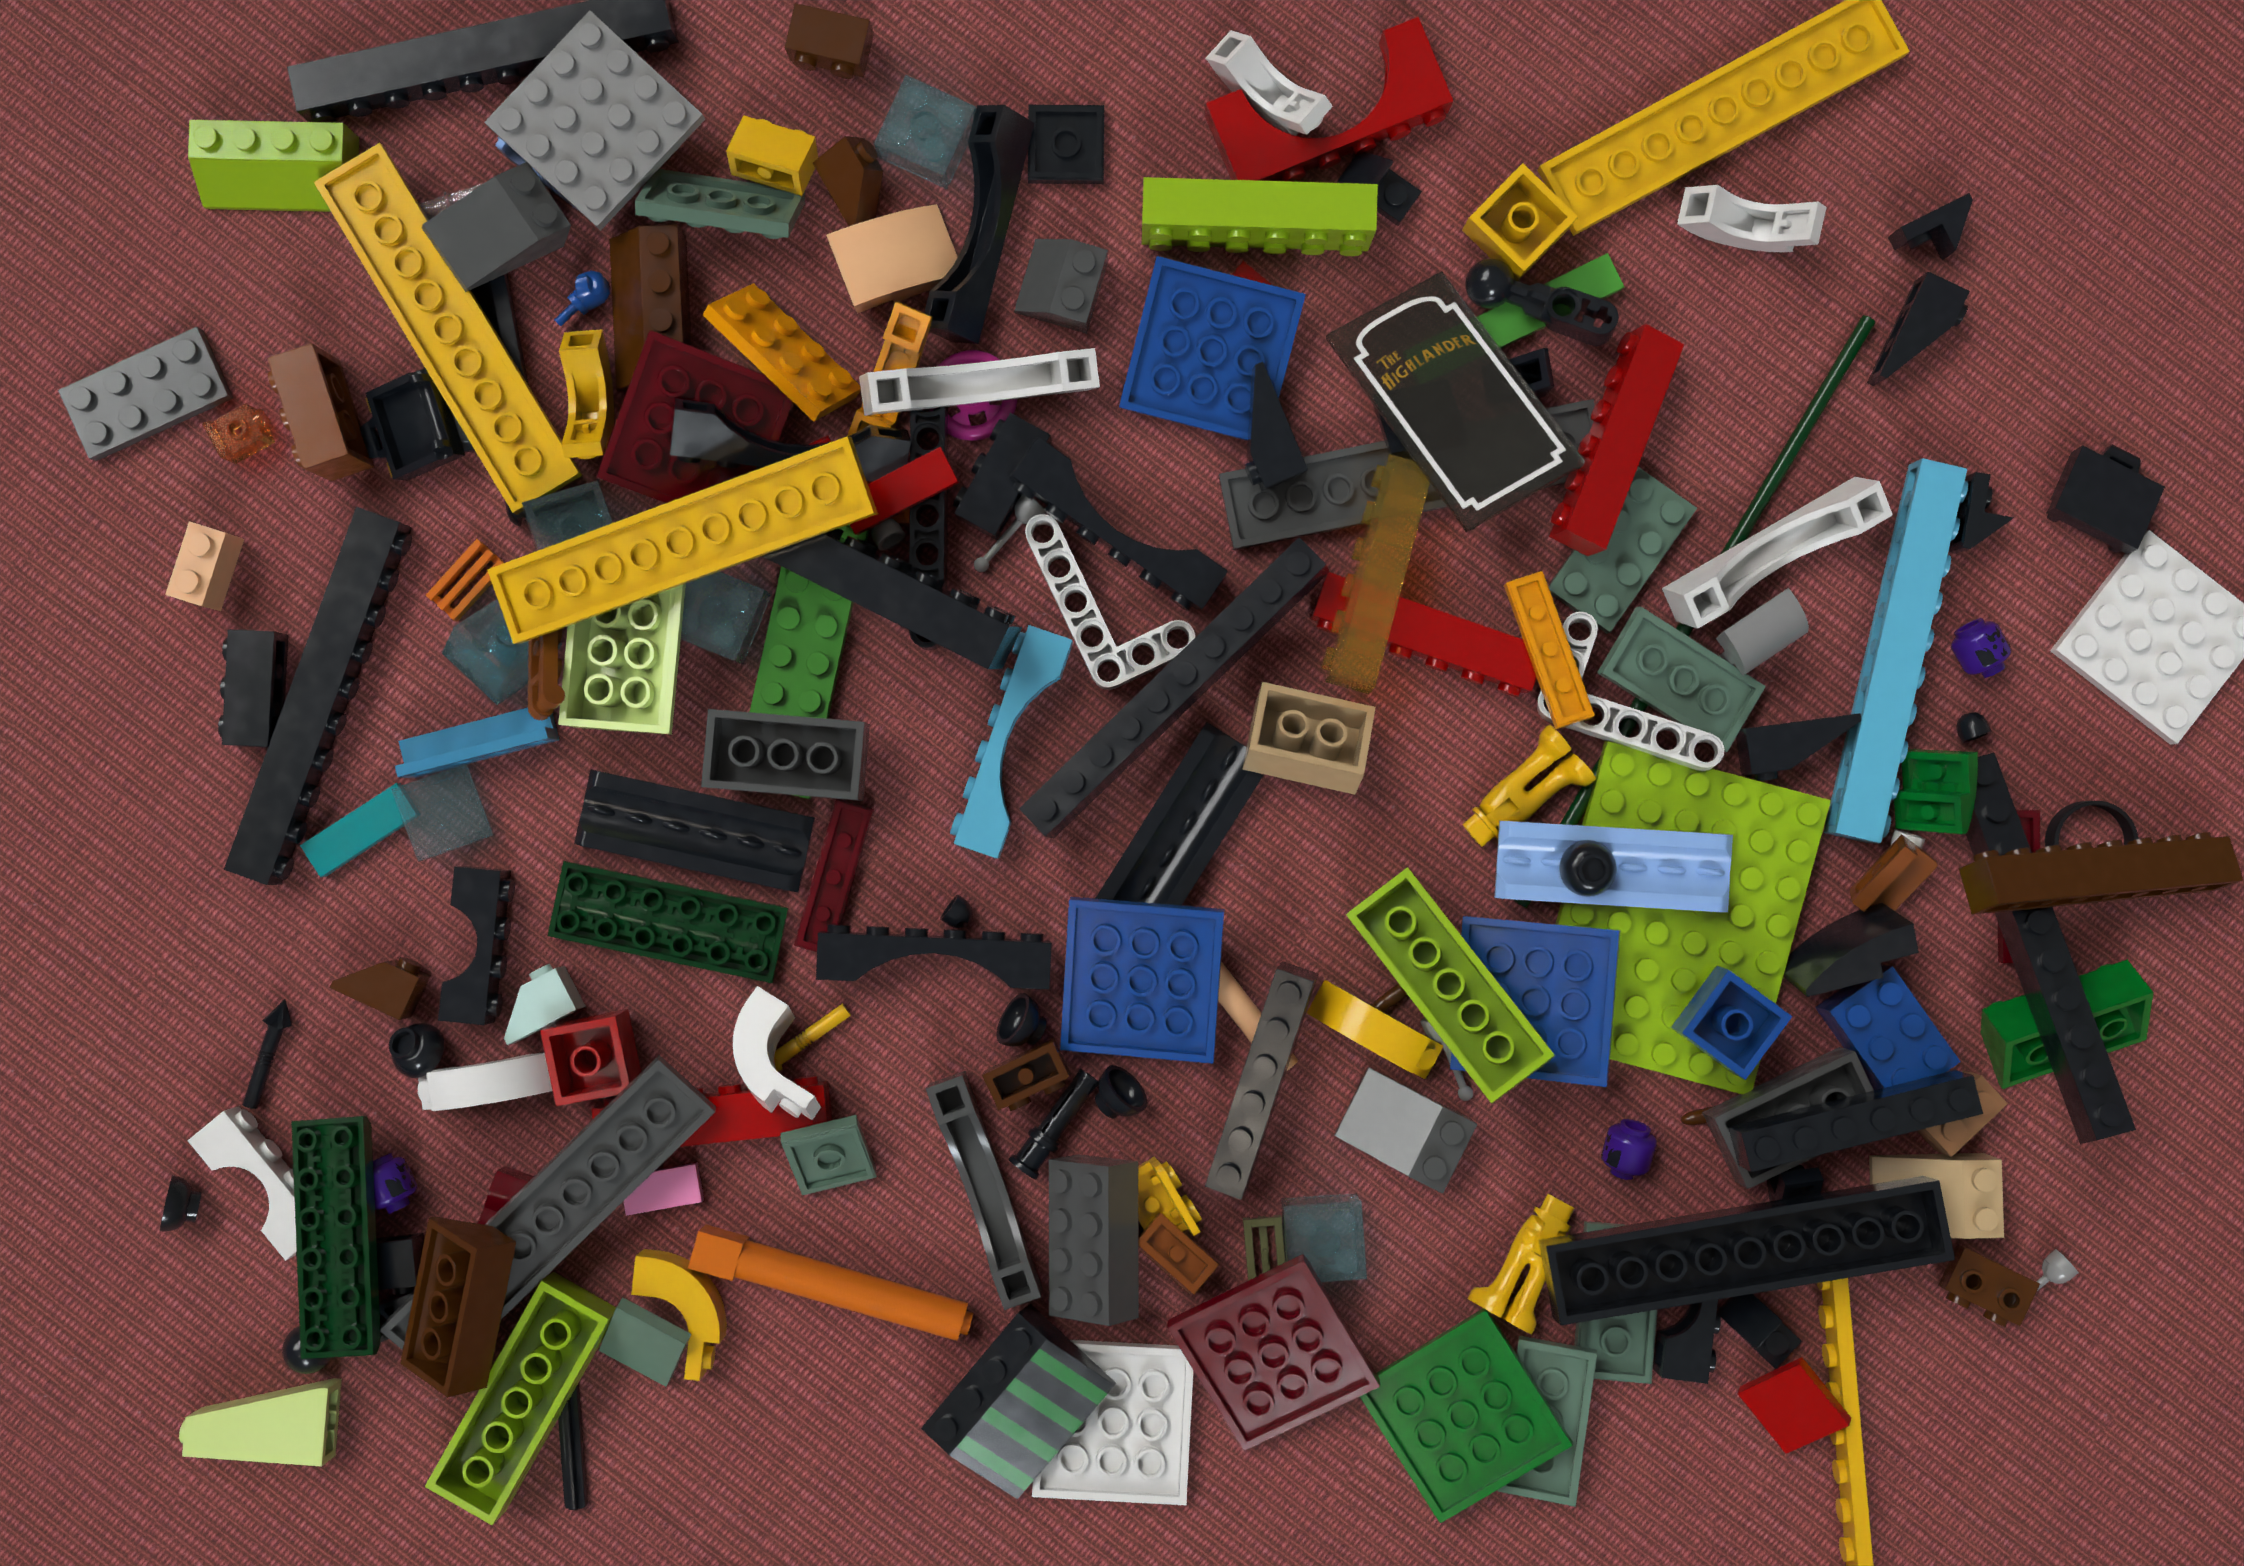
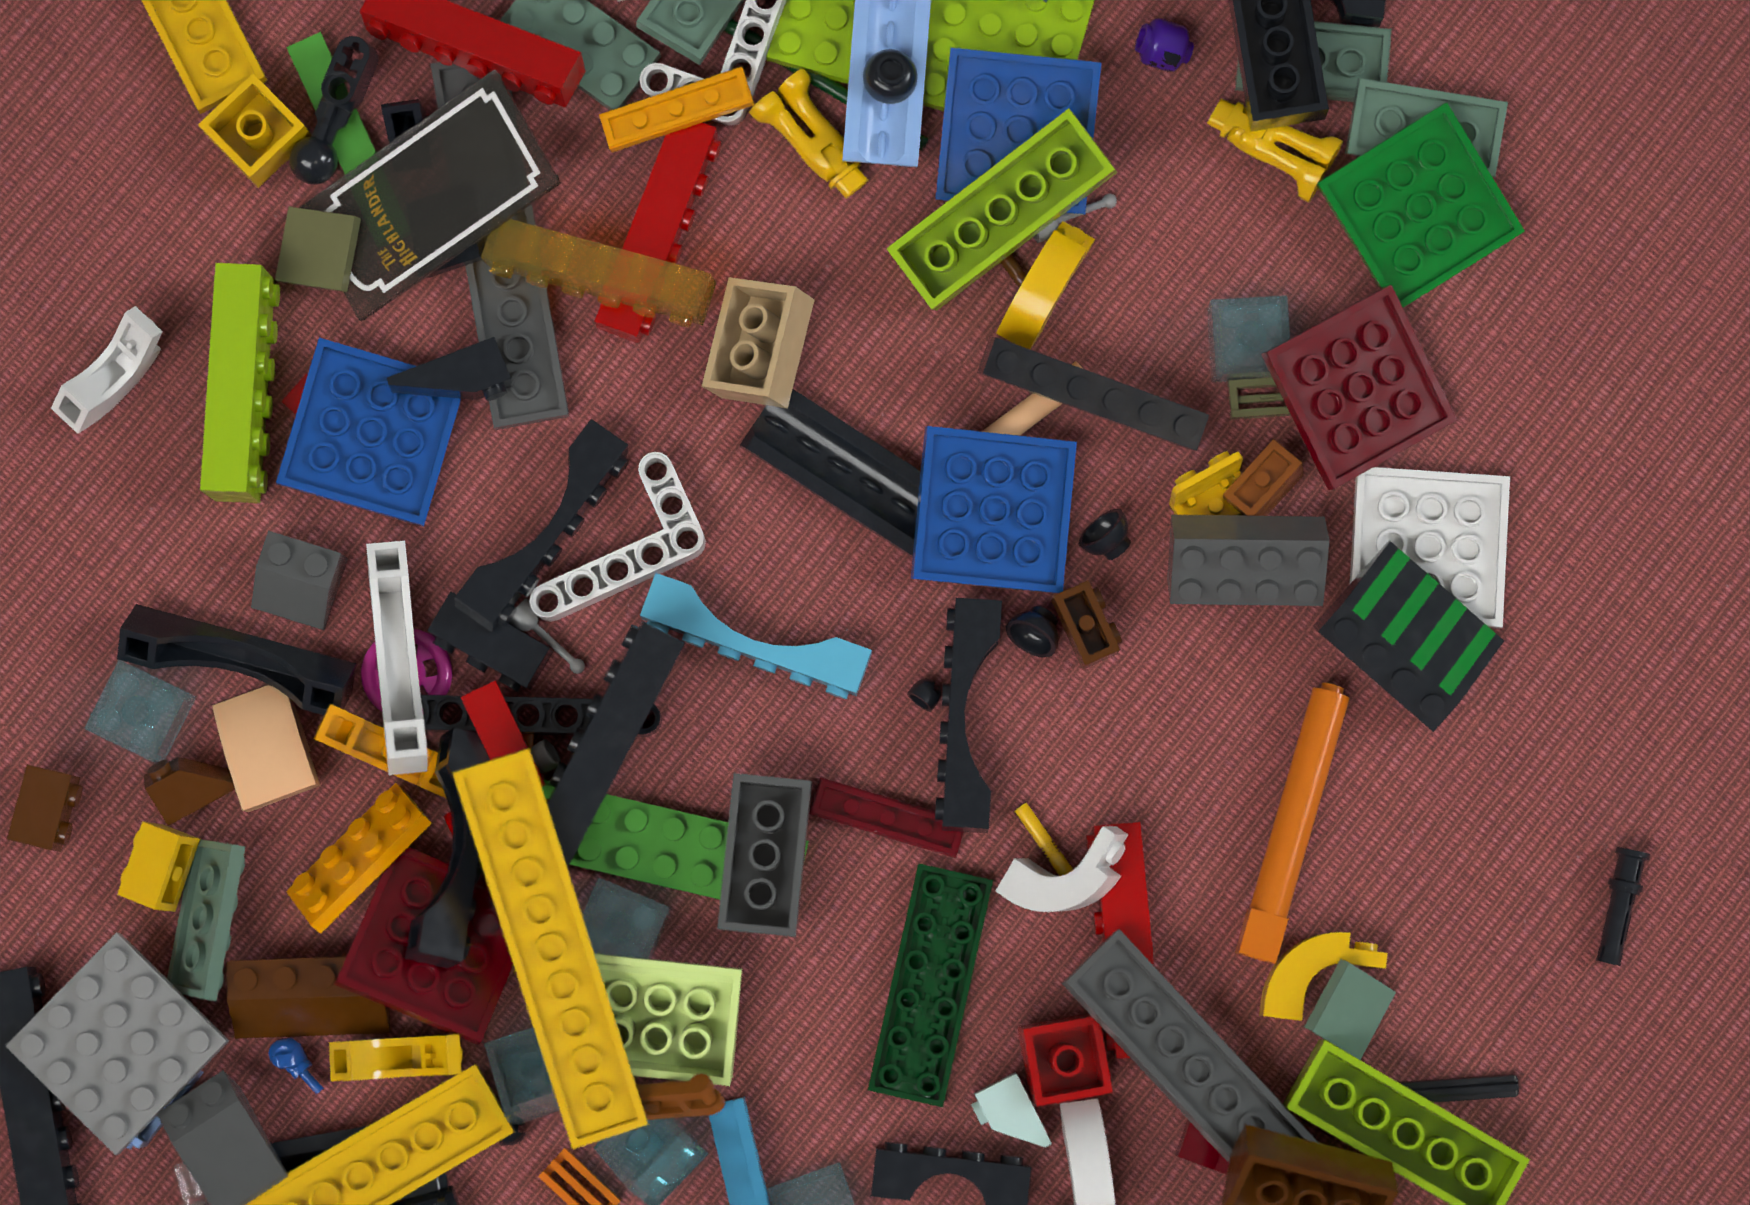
camera: 90 degrees left, 5 degrees down
(666, 1189) = (1199, 988): bright pink tile -> none
(694, 831) = (838, 957): black plate -> none
(828, 1155) = (1164, 822): sand green tile -> none
(986, 1190) = (1199, 668): dark grey arch -> none
(1044, 1138) = (1150, 610): black pin -> none
(1066, 144) = (157, 574): black tile -> none
(1175, 689) = (706, 471): black brick -> none
(1394, 193) = (198, 270): black slope -> none
(1398, 291) = (317, 249): none -> olive tile
(1406, 1130) = (1143, 258): slope -> none
(1411, 96) = (122, 235): red arch -> none

